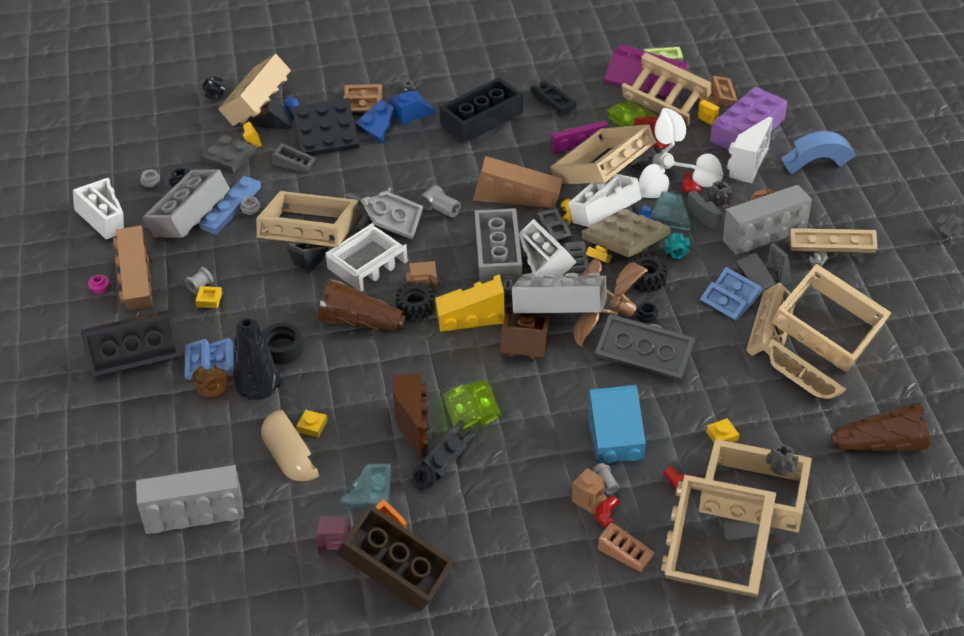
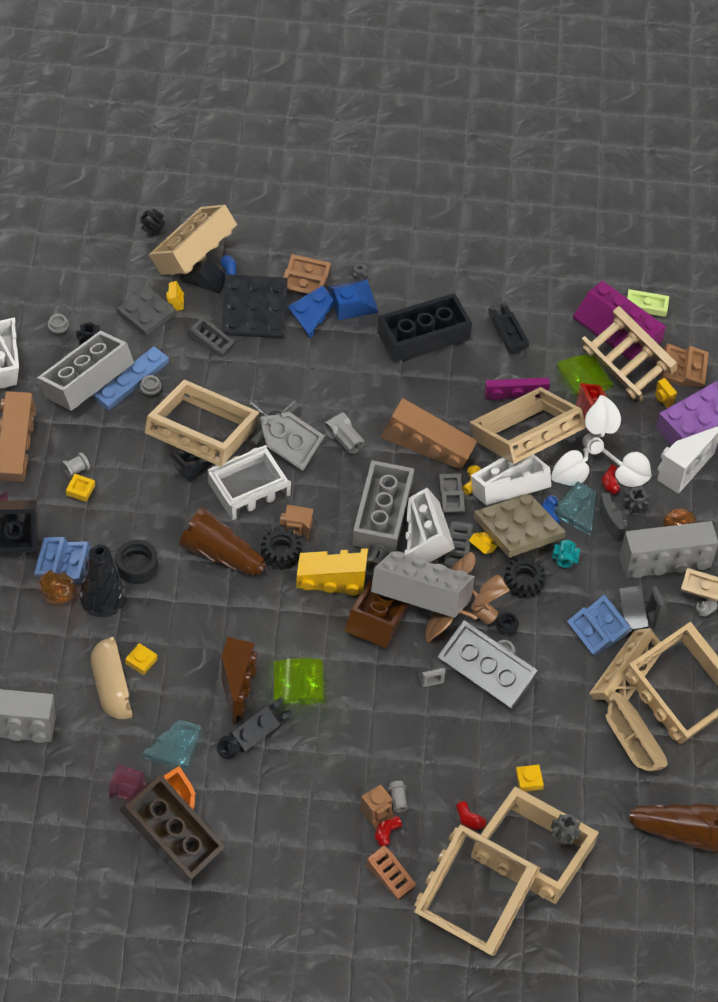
camera: 10 degrees right, 10 degrees up
(596, 370) = (432, 677): none -> light grey slope
(616, 424) = (426, 744): dark azure slope -> none

